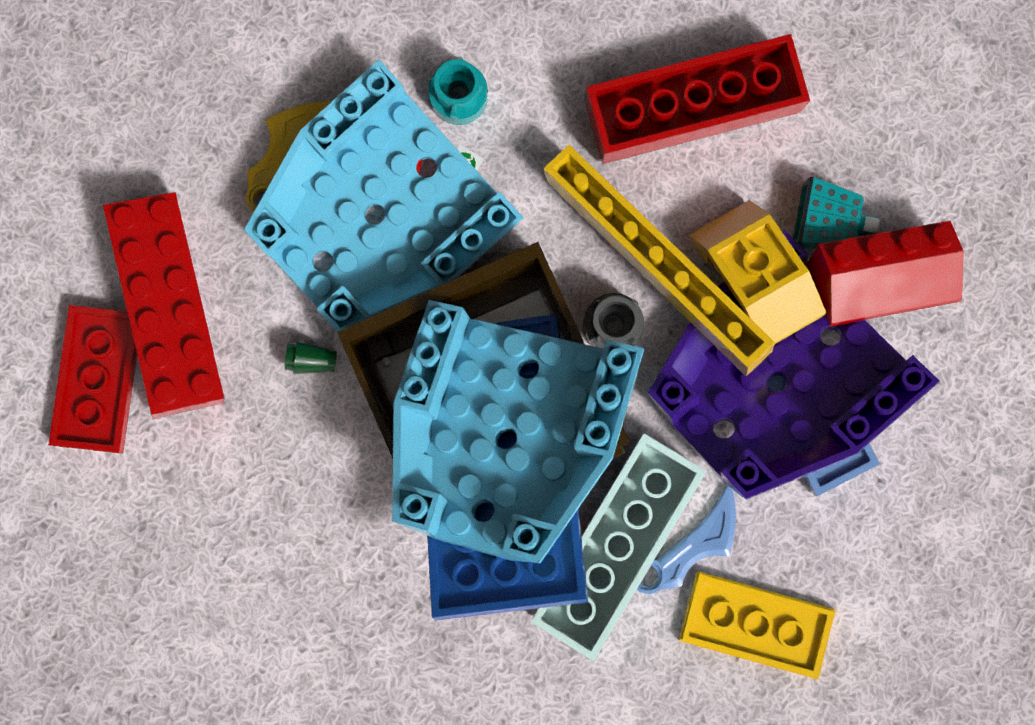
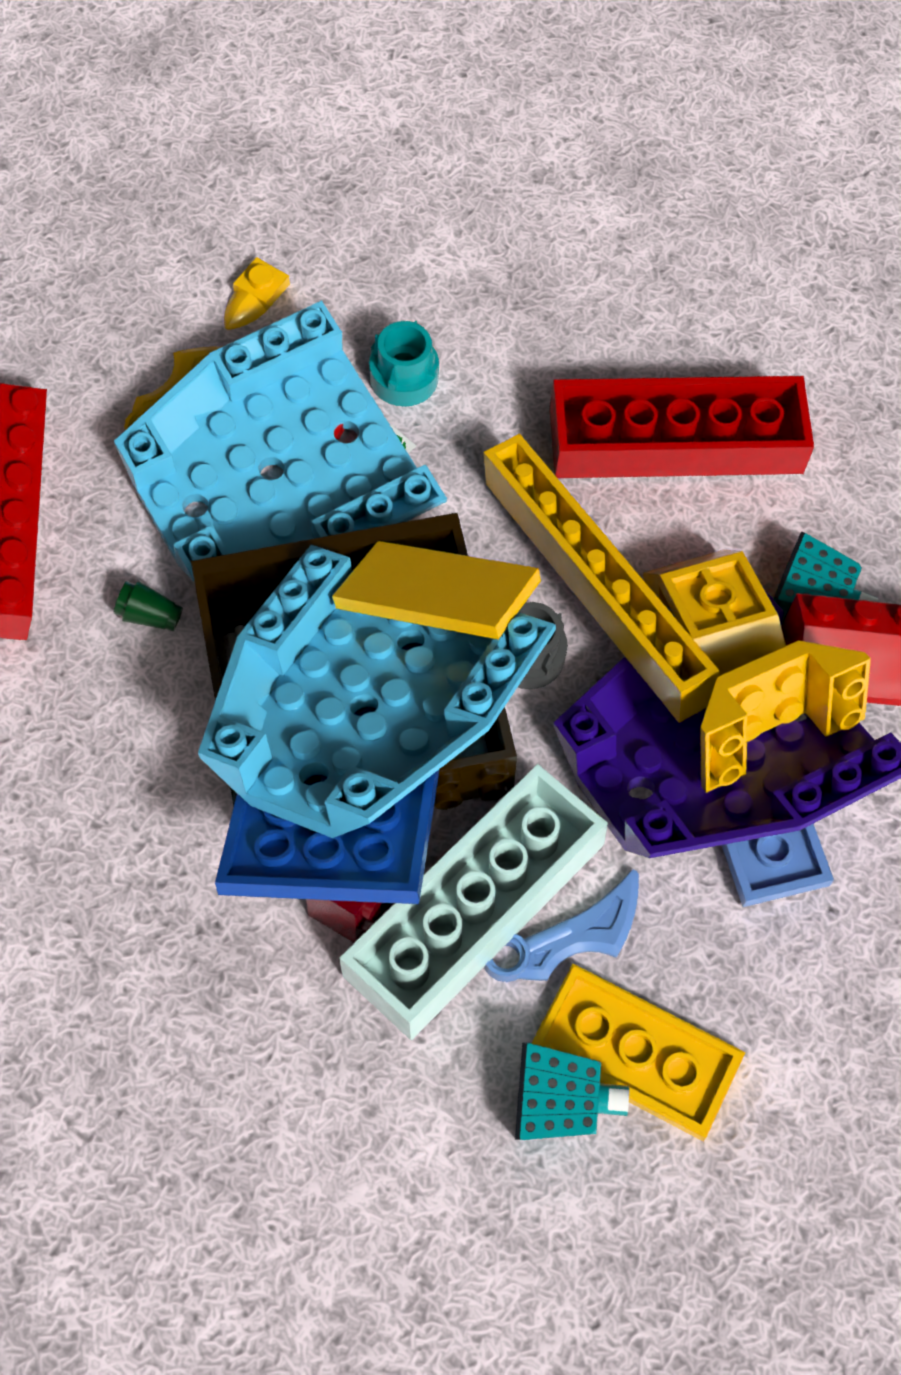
camera: 10 degrees right, 20 degrees down
(316, 47) = (254, 293): none -> yellow plate
(541, 327) = (437, 589): none -> yellow tile
(712, 678) = (563, 1095): none -> teal torso
(858, 326) = (775, 690): none -> yellow slope

